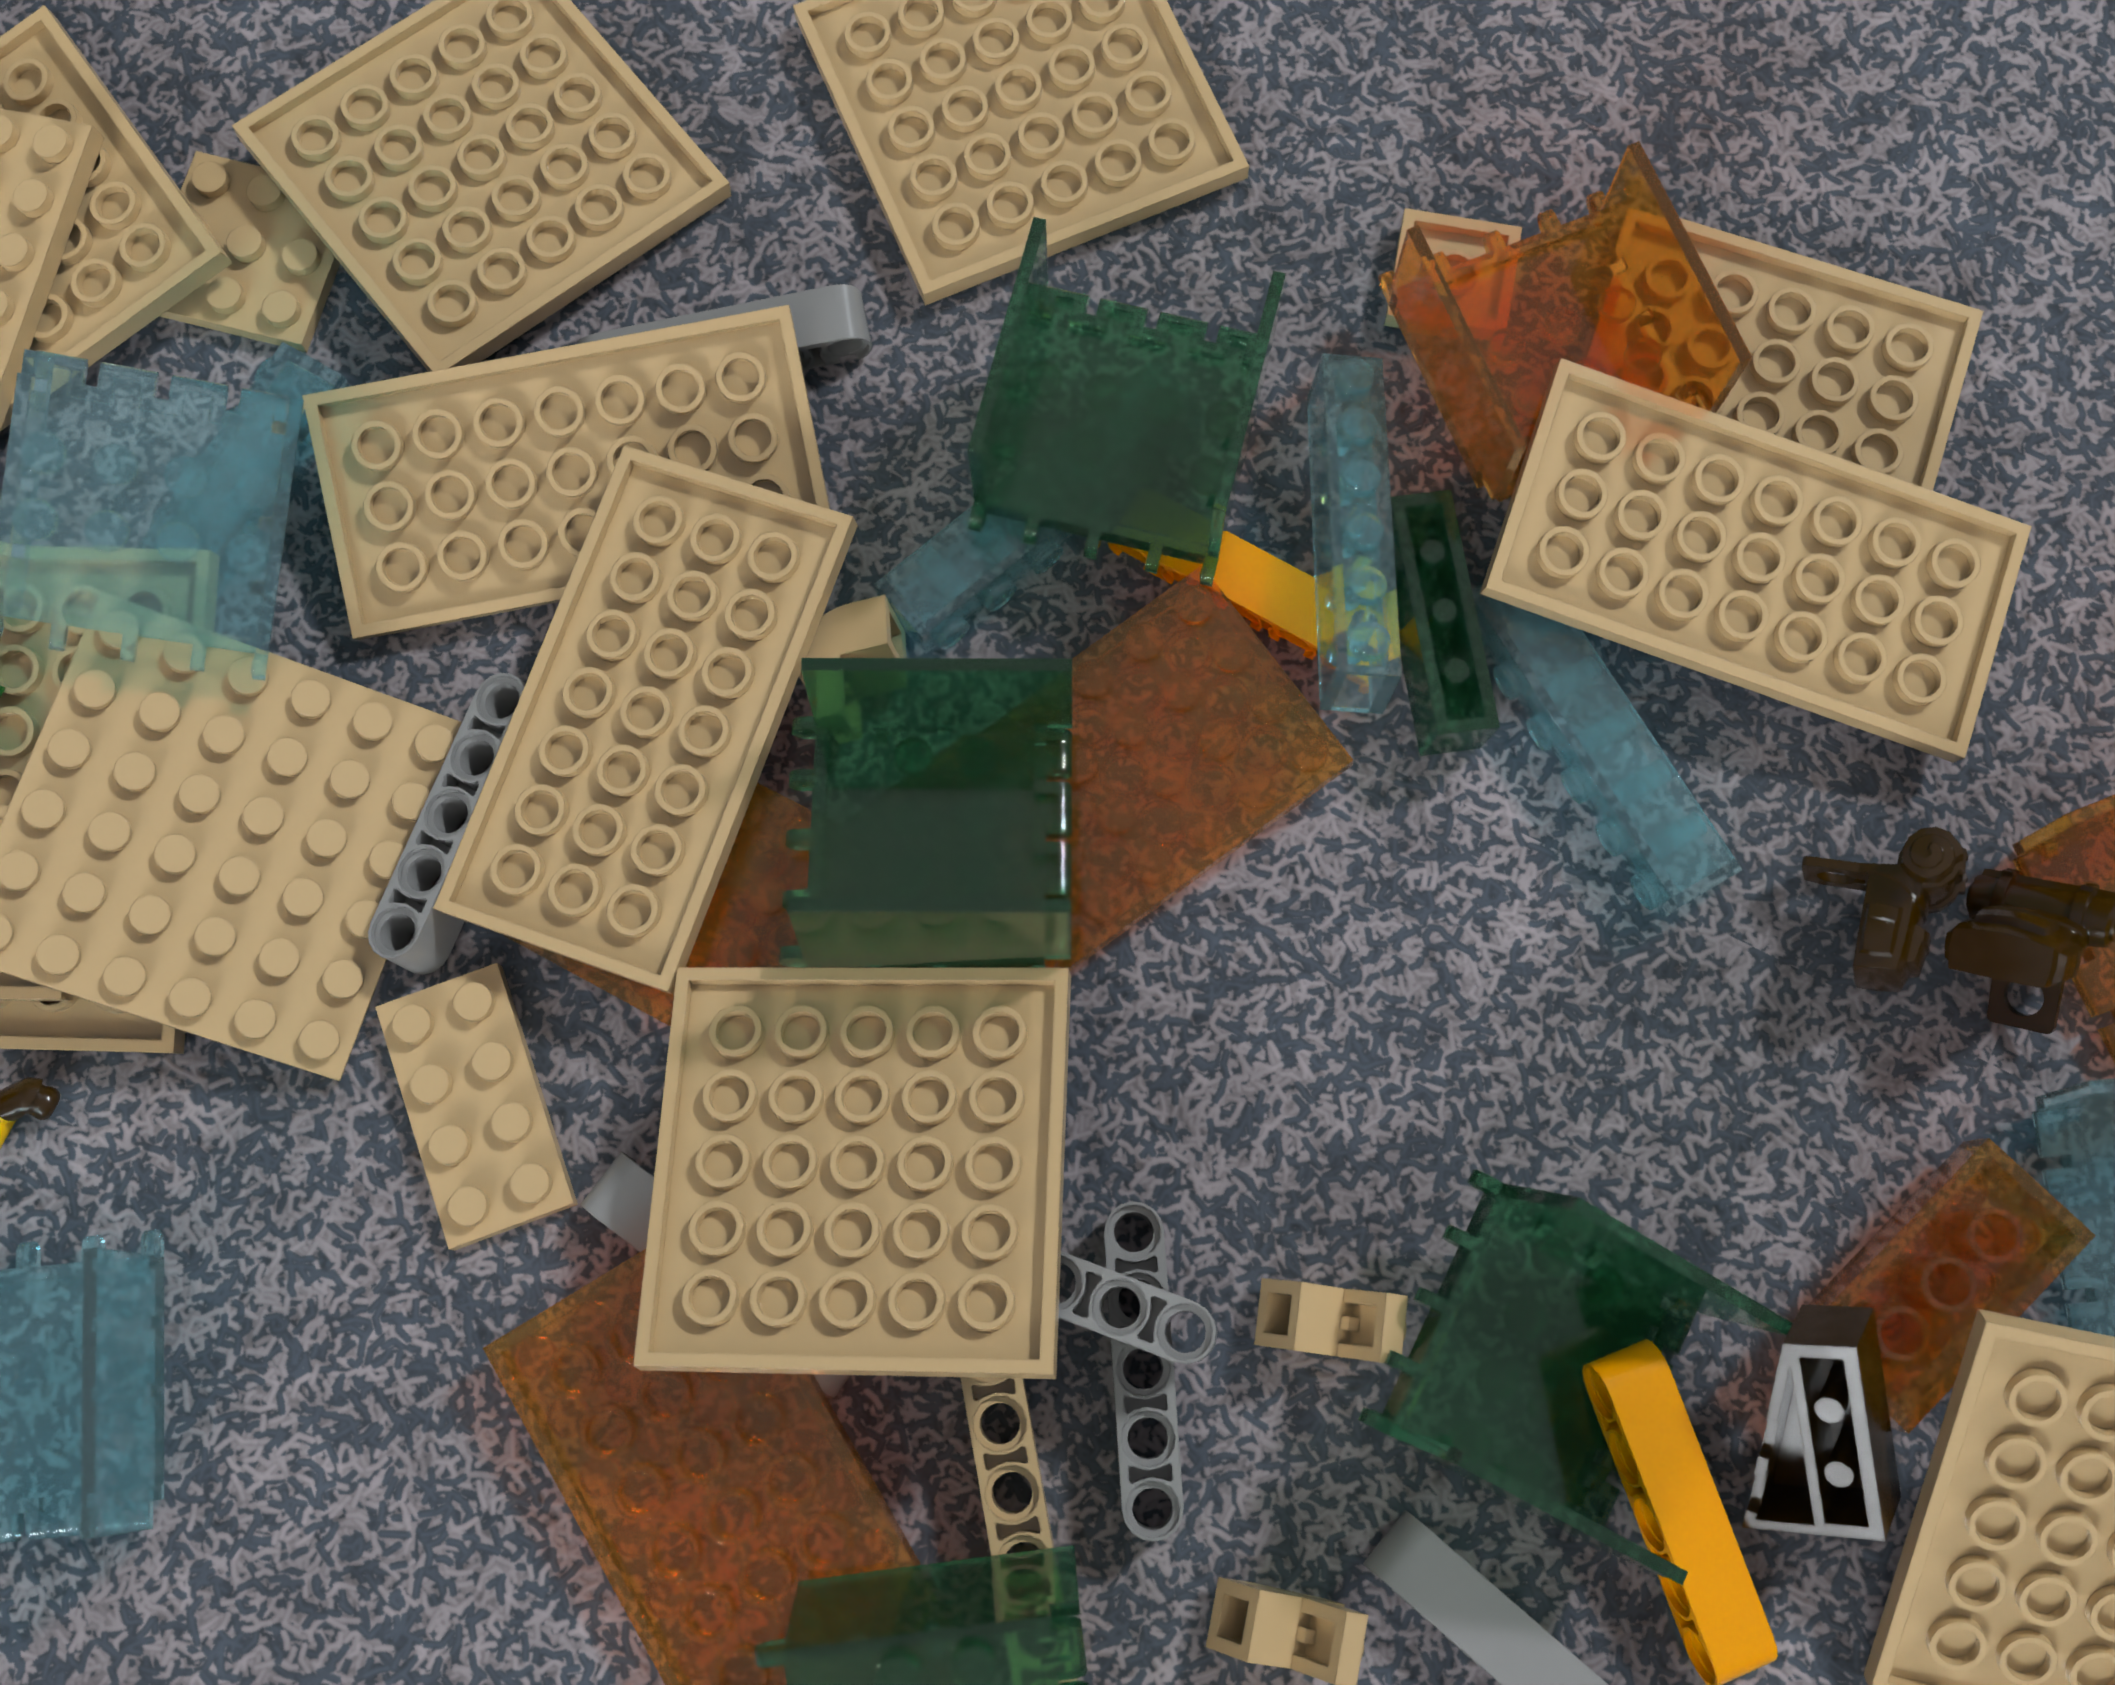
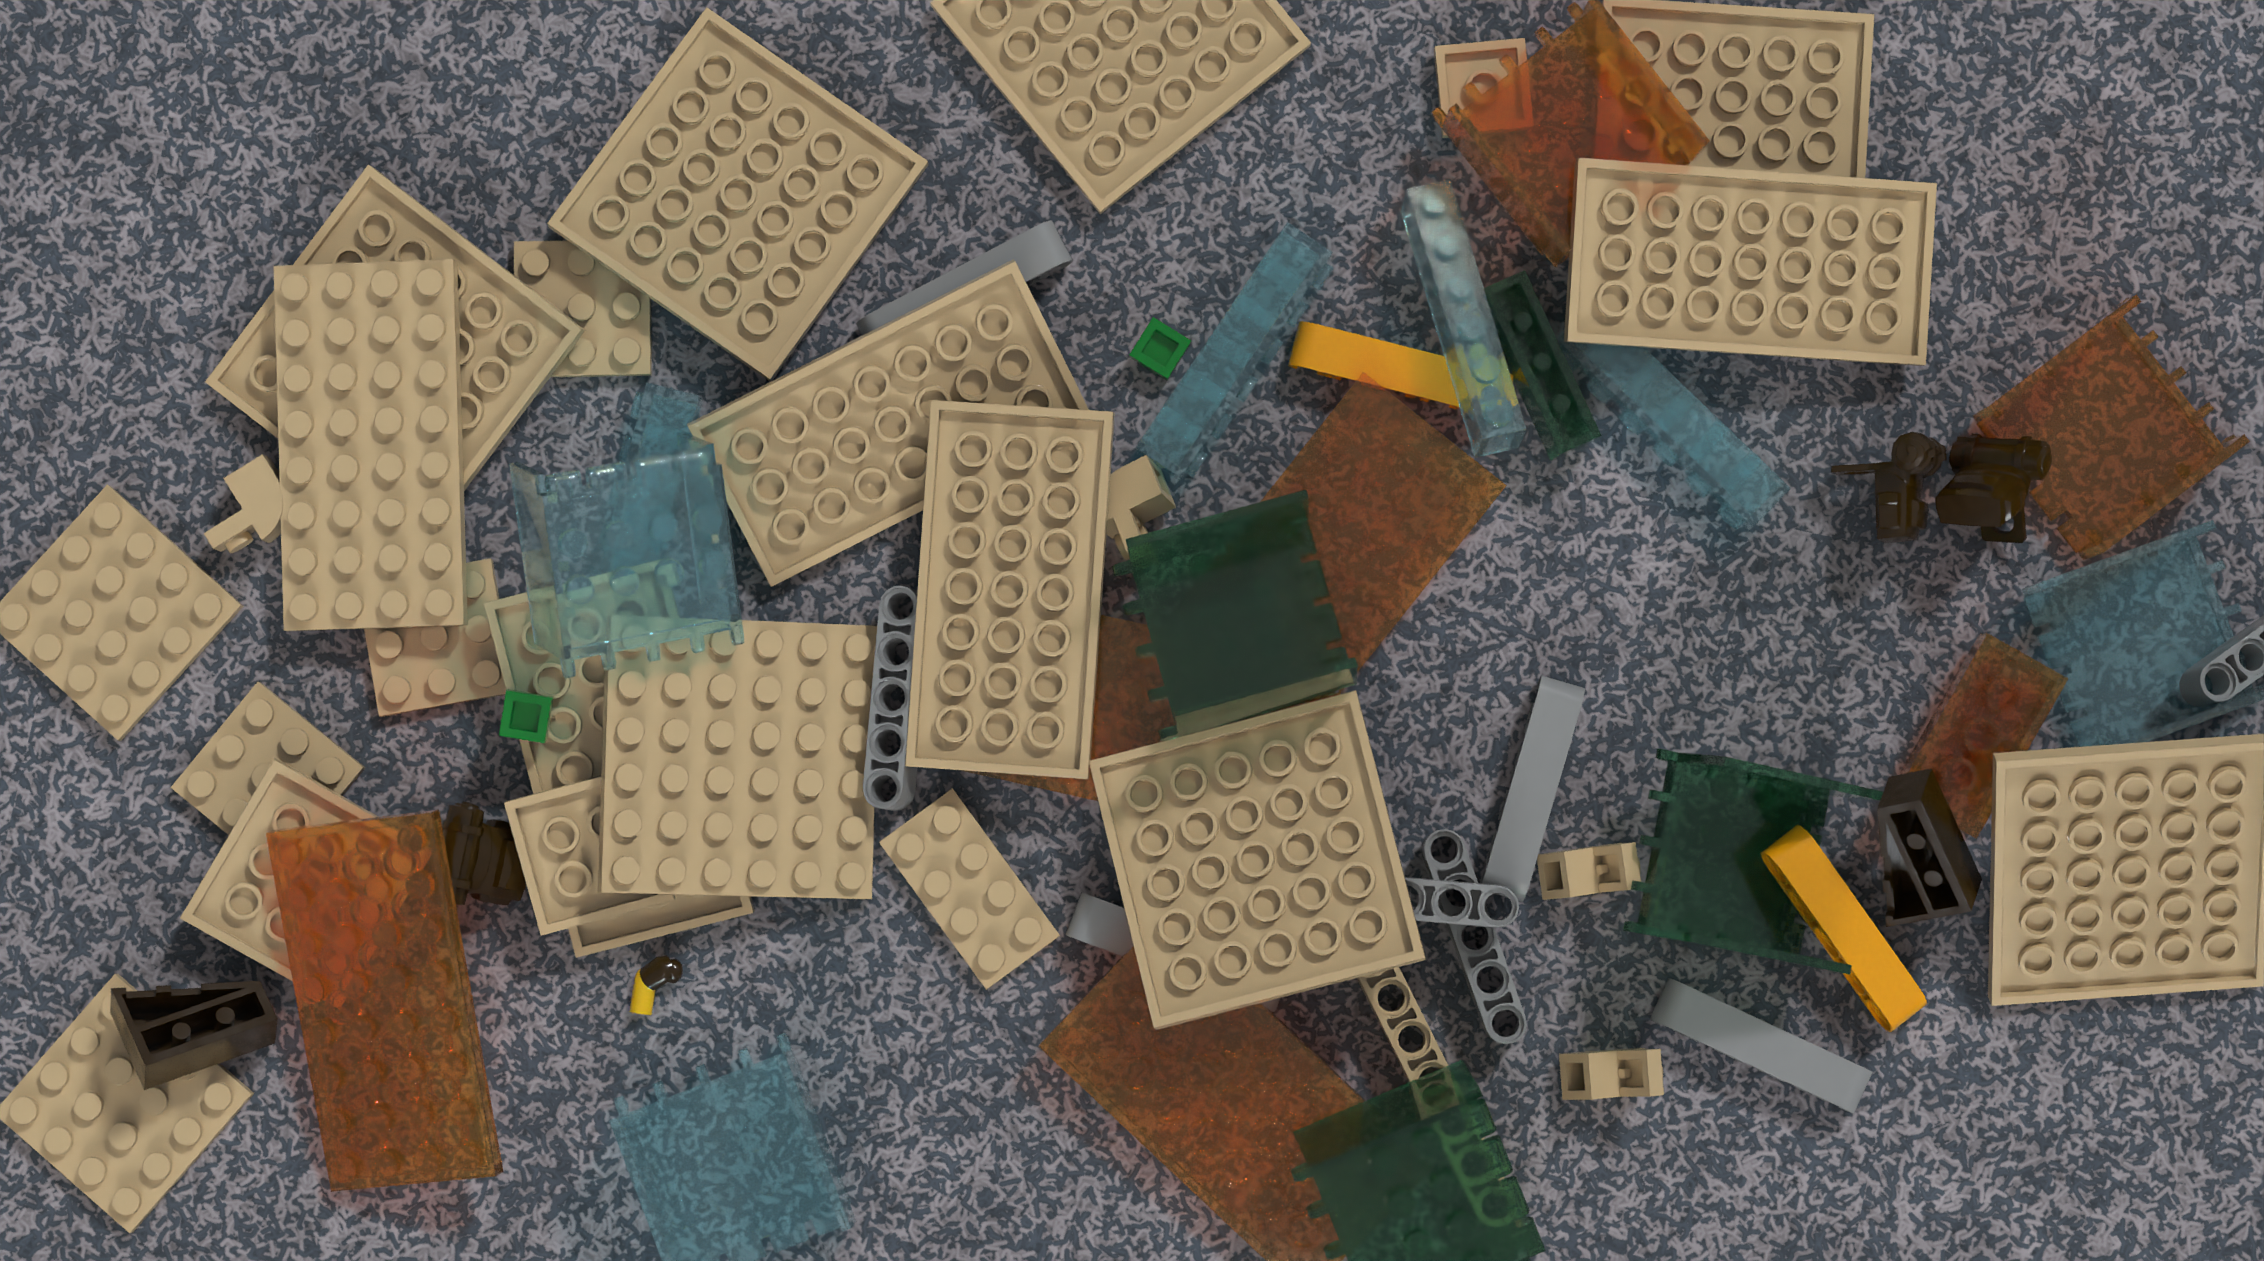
camera: 20 degrees left, 10 degrees up
(944, 480) = (1160, 348): none -> green plate
(1116, 421) = (1284, 284): clear green windscreen -> none
(1282, 1182) = (1533, 786): none -> light grey beam

